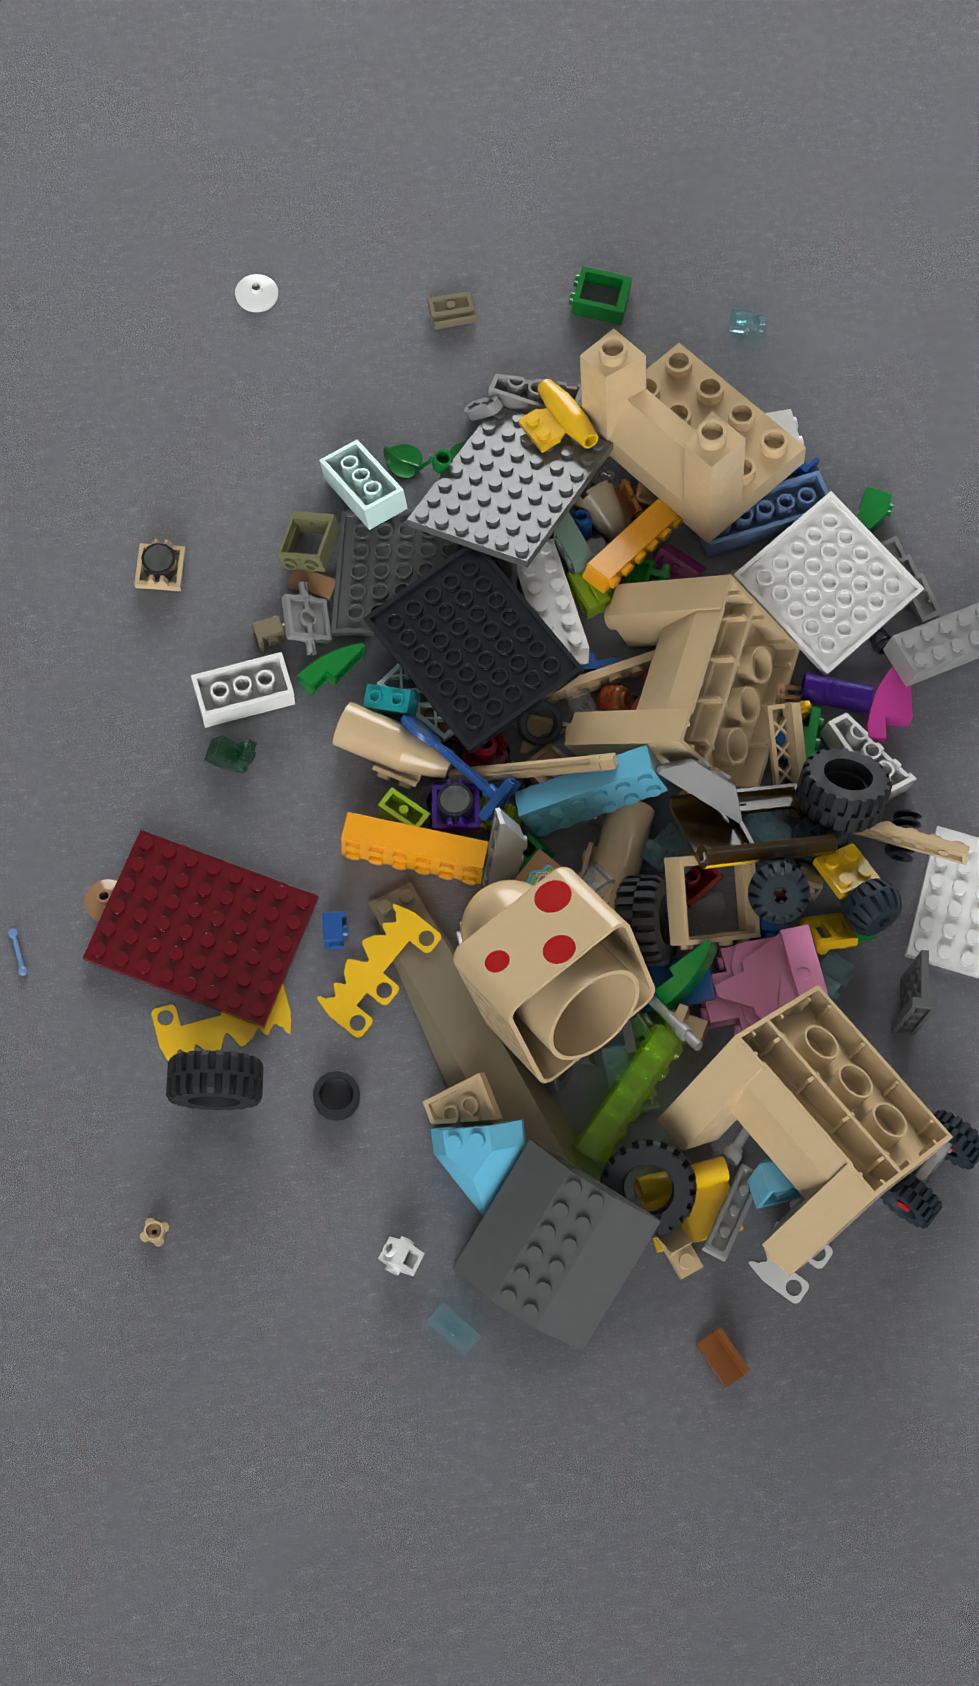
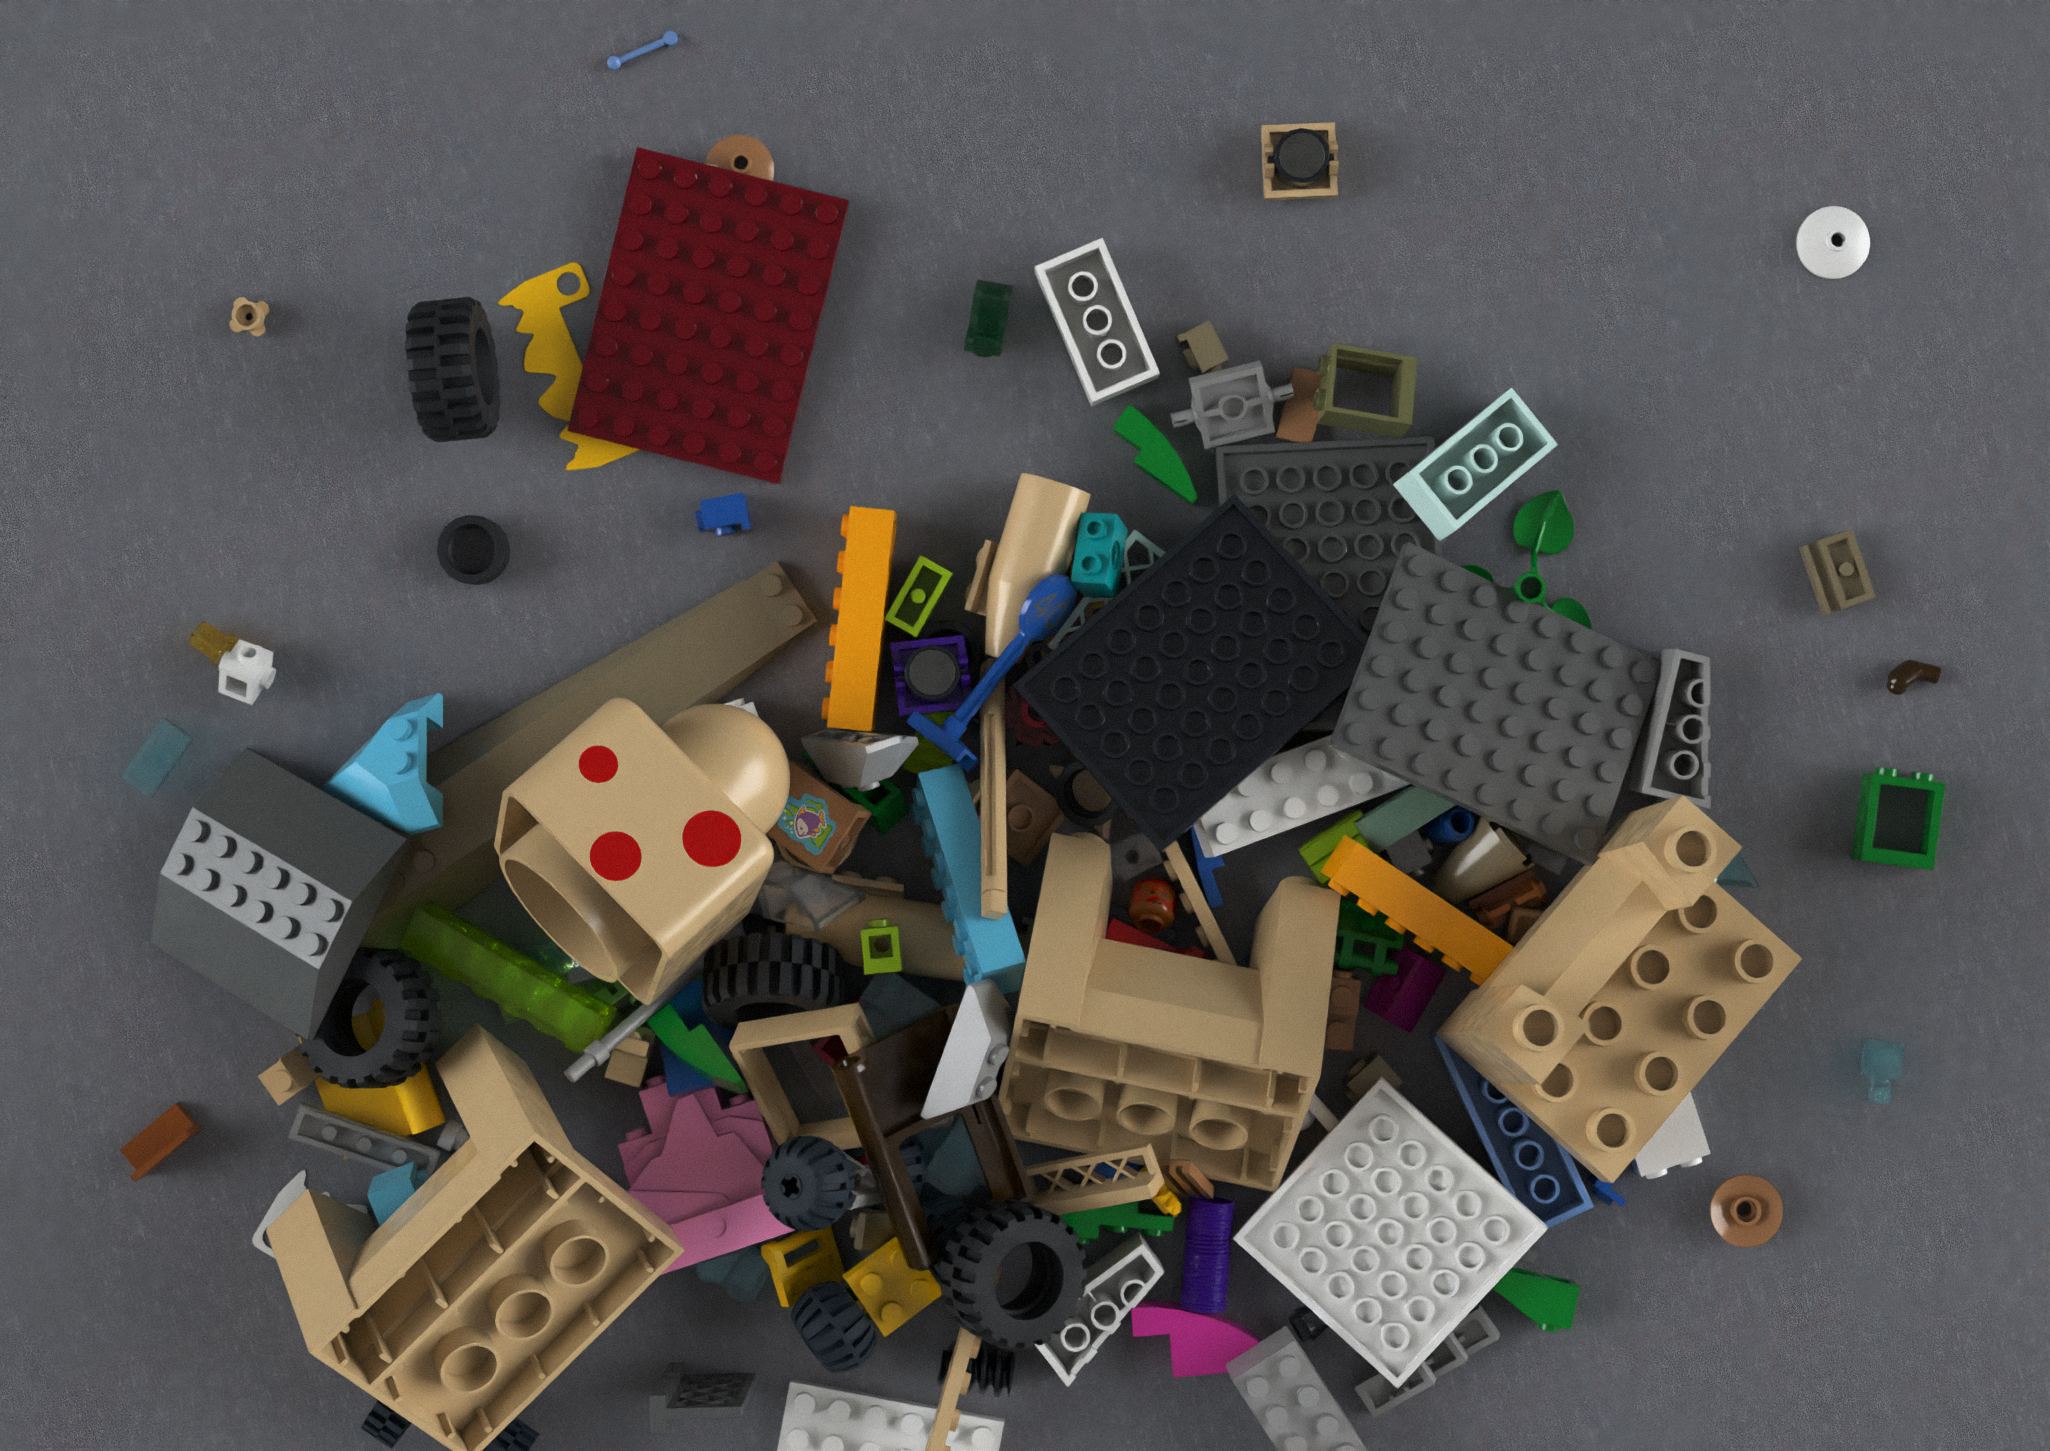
camera: 90 degrees right, 20 degrees up
(366, 976) = (660, 573): yellow piece -> none
(378, 1280) = (212, 642): none -> clear yellow bush
(464, 1102) = (474, 737): tan wing -> none
(483, 407) = (1649, 644): light grey beam -> none
(516, 282) = (1908, 673): none -> dark brown arm
(559, 417) = (1627, 773): yellow plate -> none
(635, 840) = (881, 961): none -> lime brick
(826, 390) = (1758, 1223): none -> medium nougat dish

